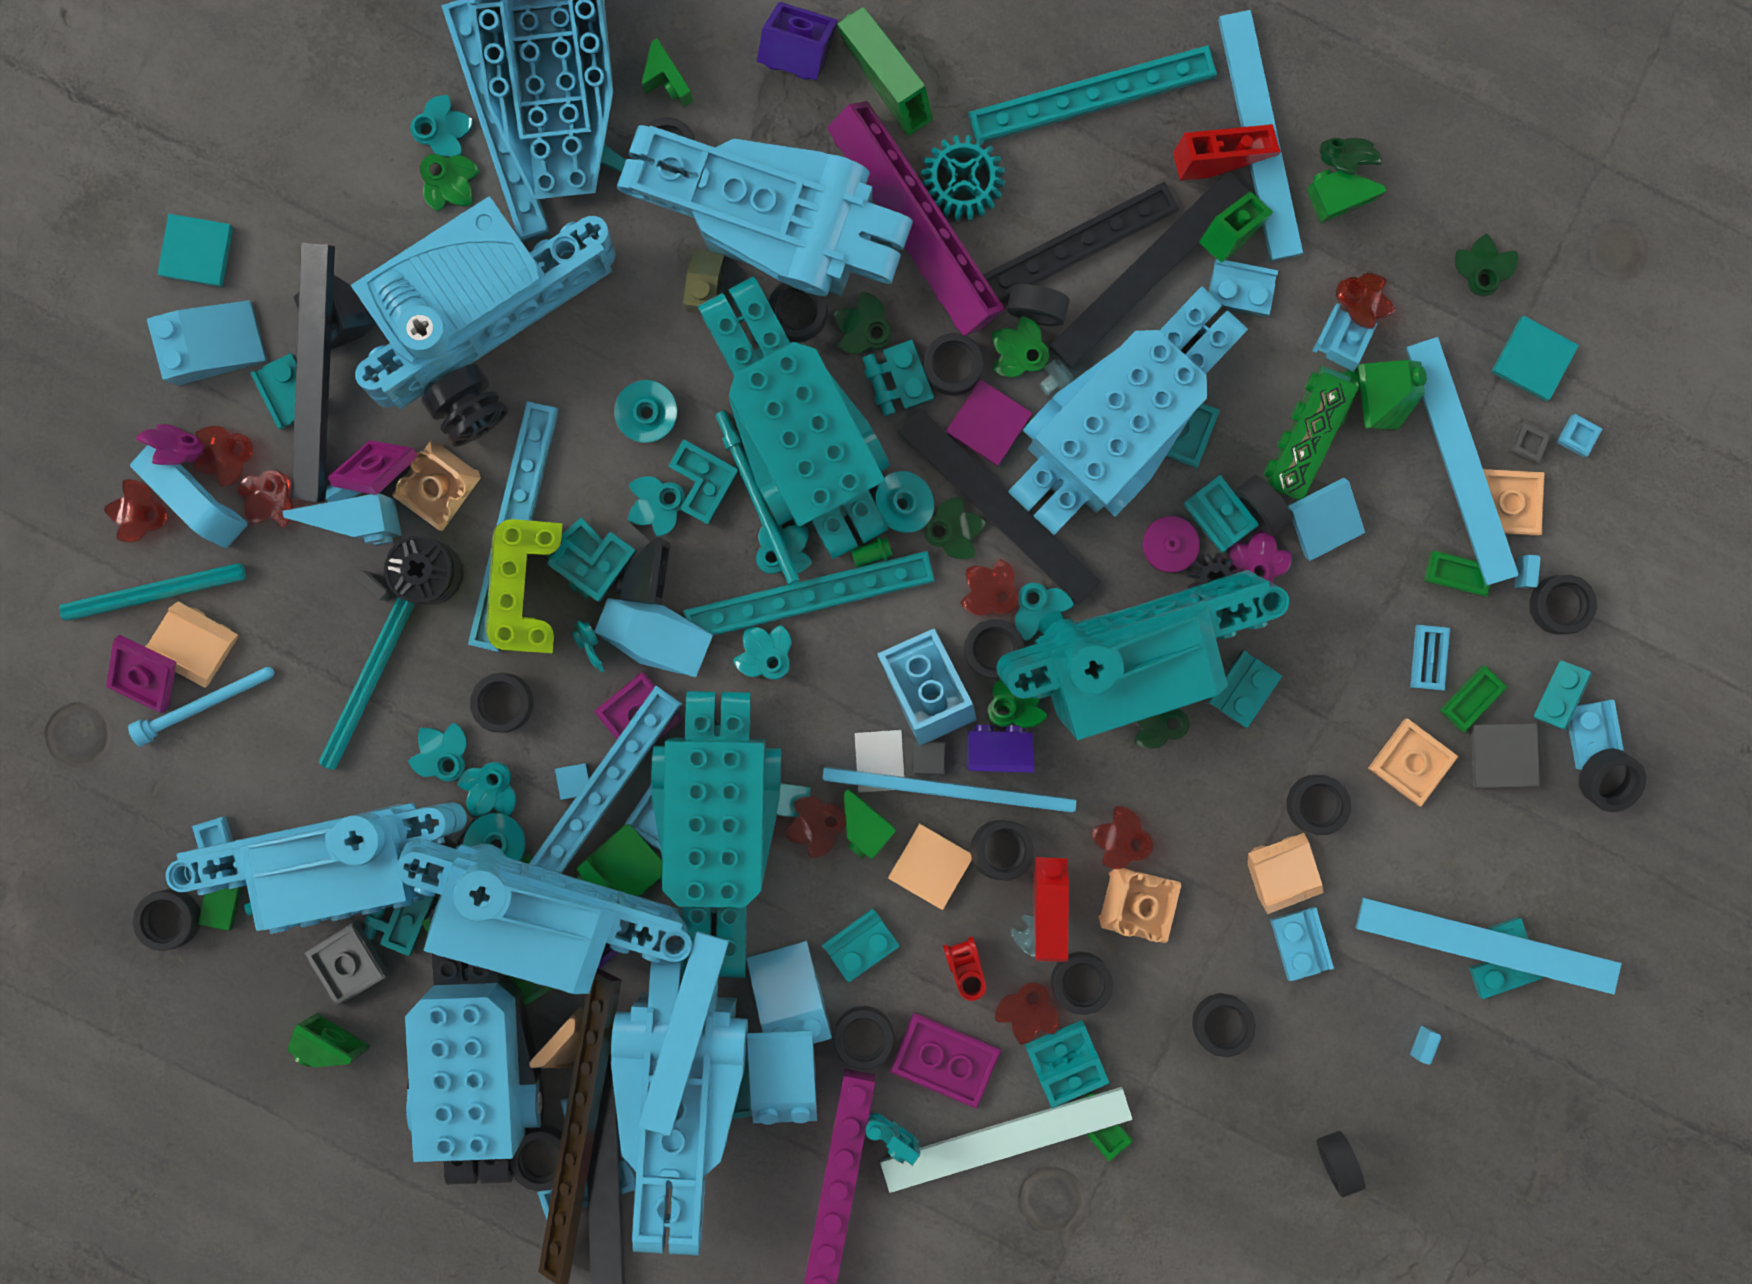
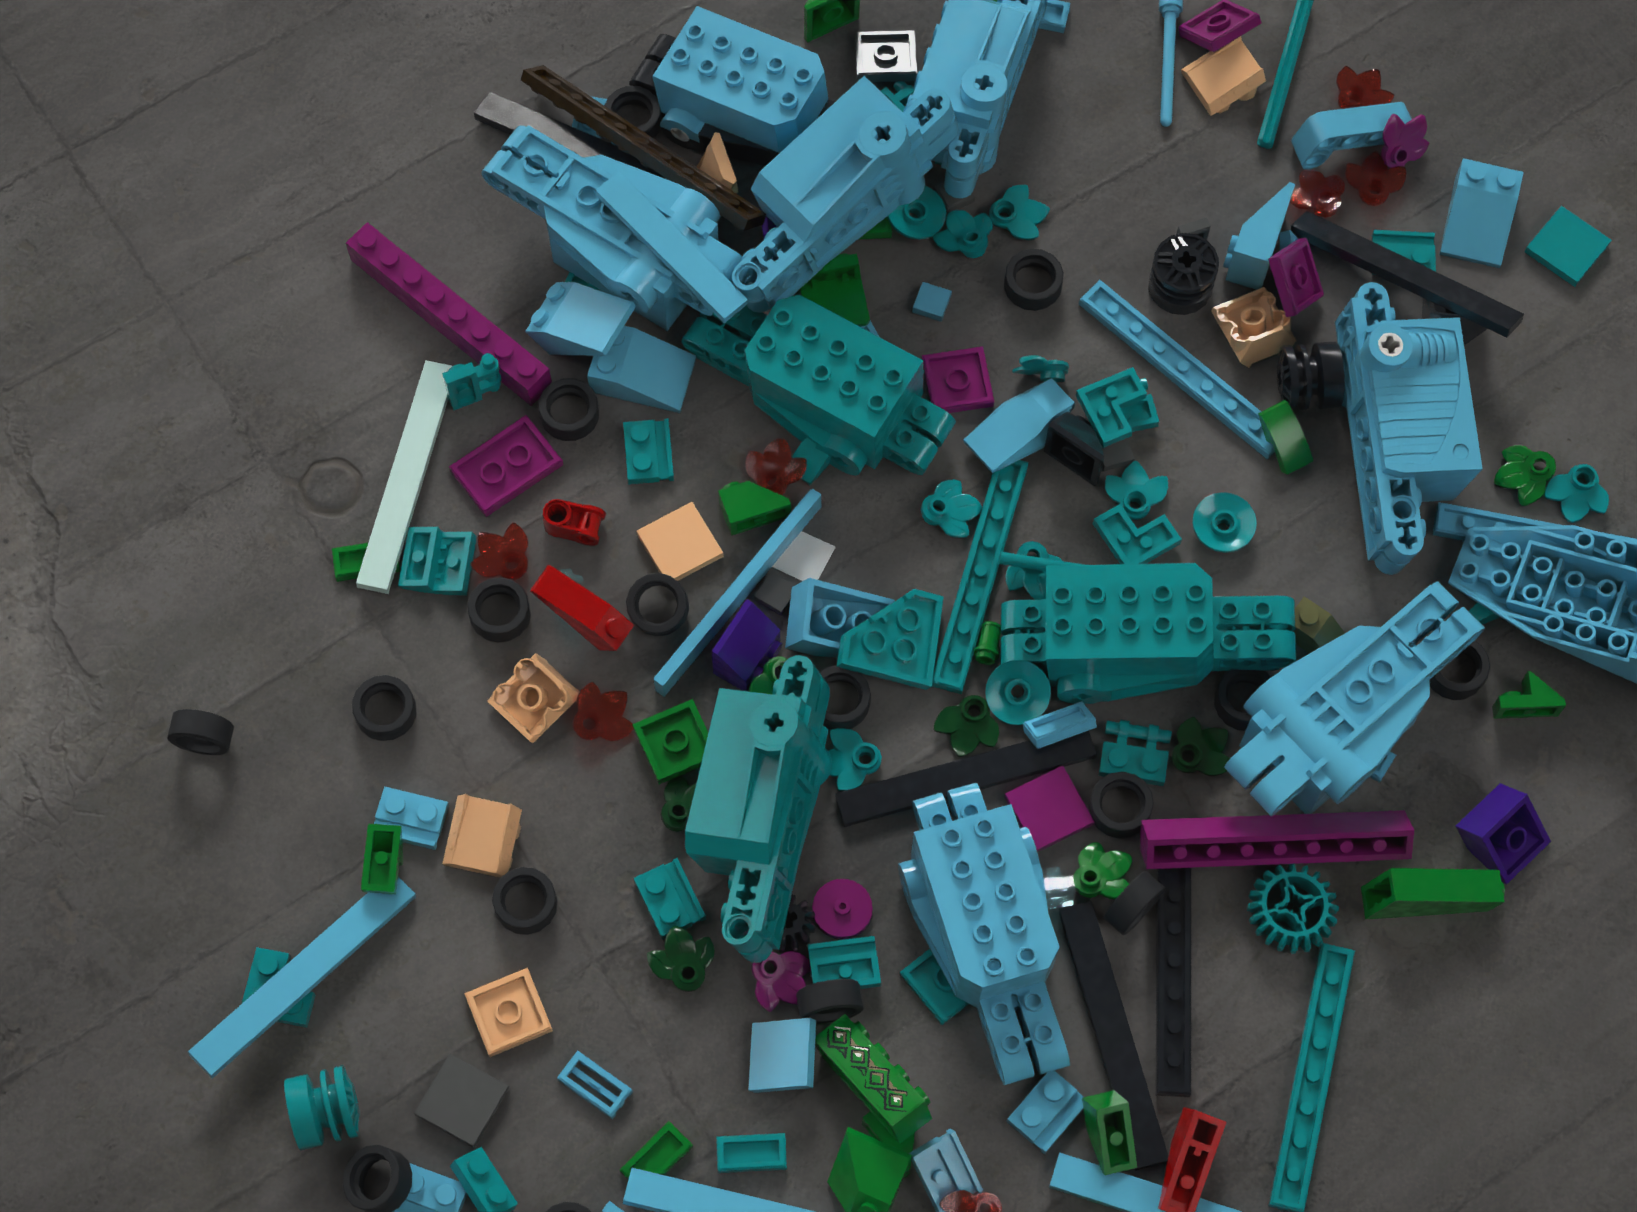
camera: 115 degrees right, 20 degrees down
(366, 683) = (1109, 183): teal axle -> none
(509, 551) = (1102, 306): lime windscreen -> none
(533, 399) = (1287, 437): none -> green slope
(606, 781) = (915, 320): medium azure tile -> none
(912, 452) = (1059, 725): none -> medium azure tile
(918, 628) = (896, 641): none -> teal plate
(986, 587) = (899, 726): clear red plate -> none
(1112, 764) = (673, 740): none -> green plate
(1288, 650) = (679, 954): none -> dark green plate
(1360, 941) = (382, 858): none -> green slope
(1411, 501) = (751, 1153): none -> teal tile
(1425, 1045) = (250, 870): medium azure tile -> none
(1473, 698) = (532, 1102): green tile -> none
(1588, 859) = (321, 1107): none -> teal wheel

